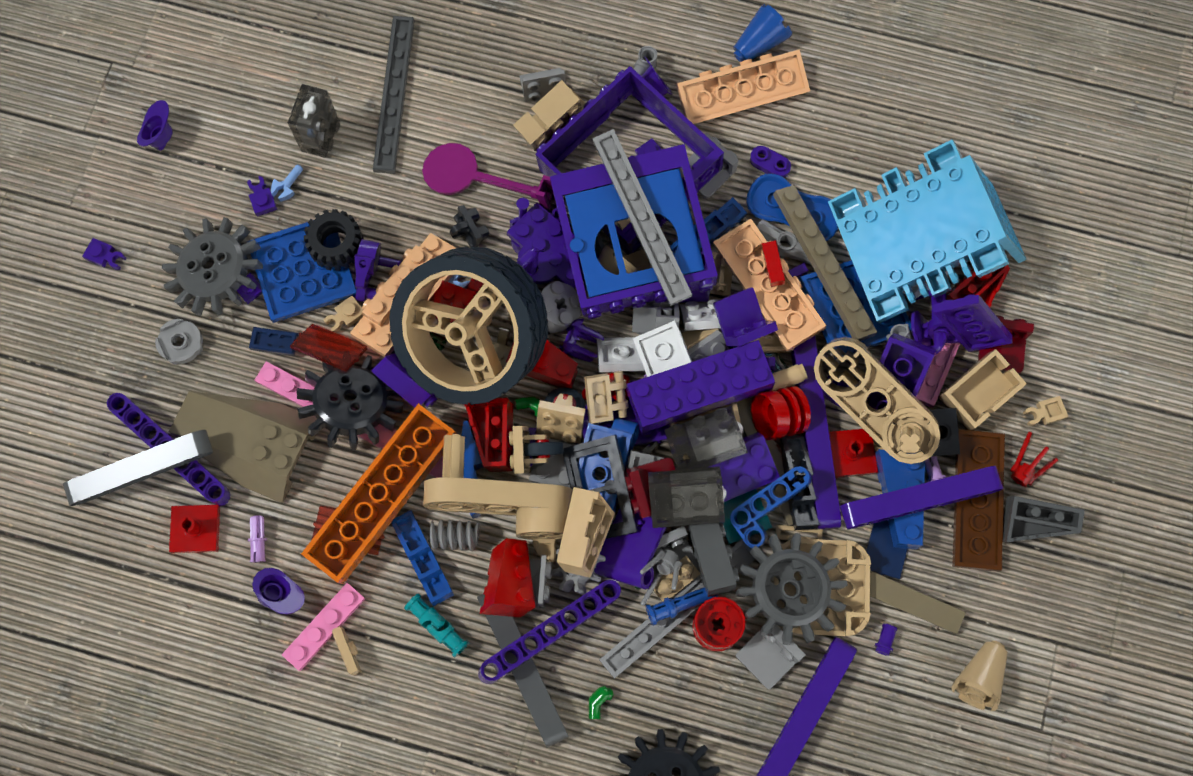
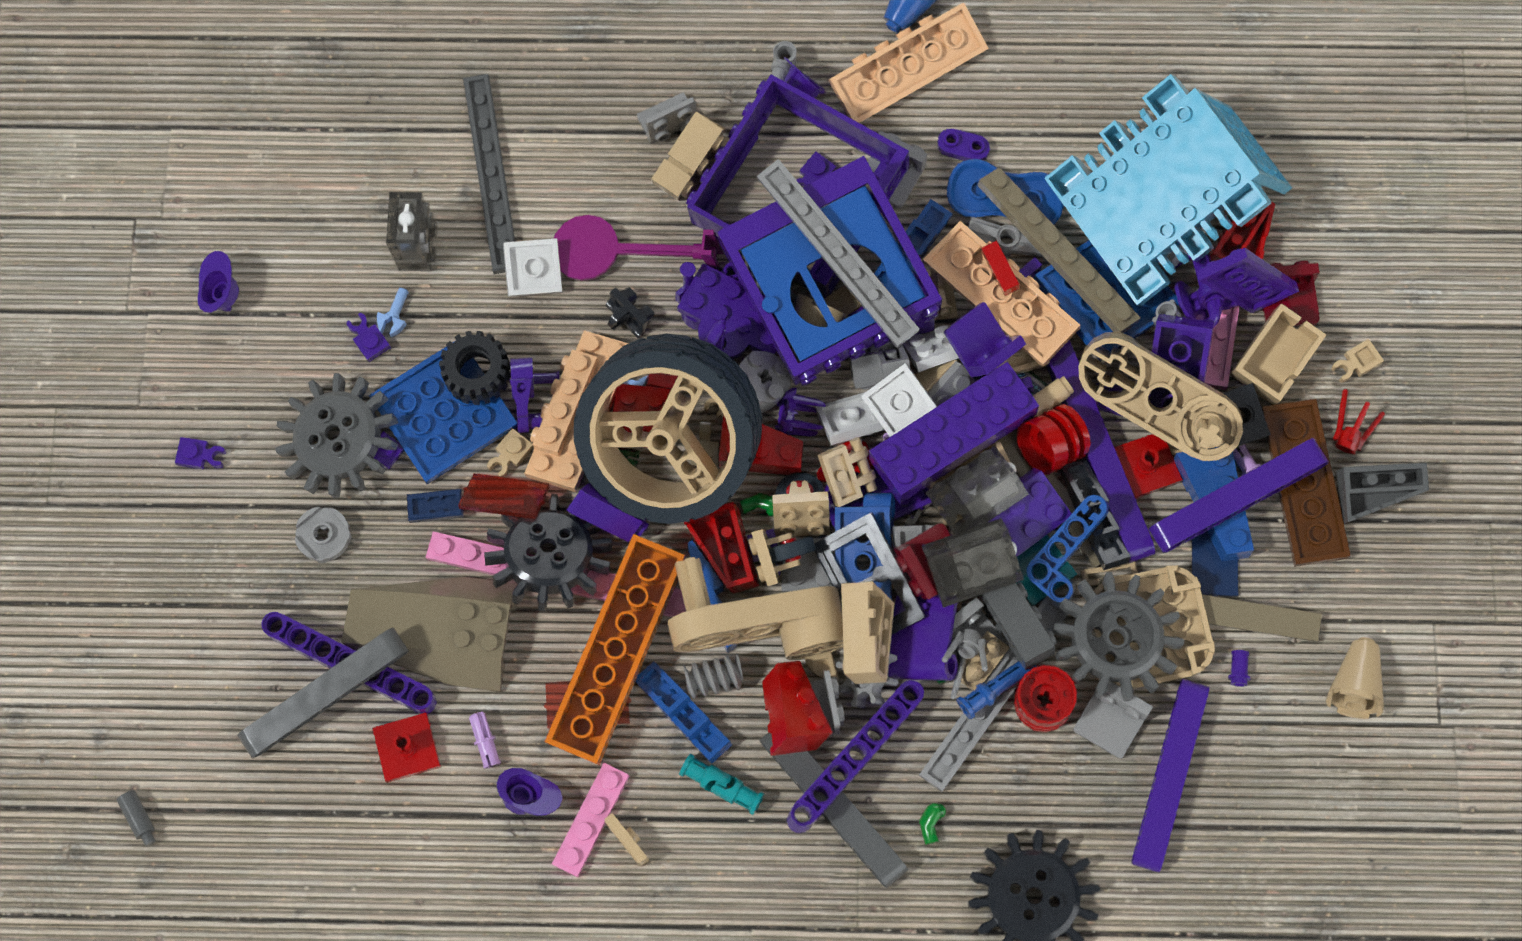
camera: 10 degrees left, 0 degrees up
(403, 173) = (532, 267): none -> white plate

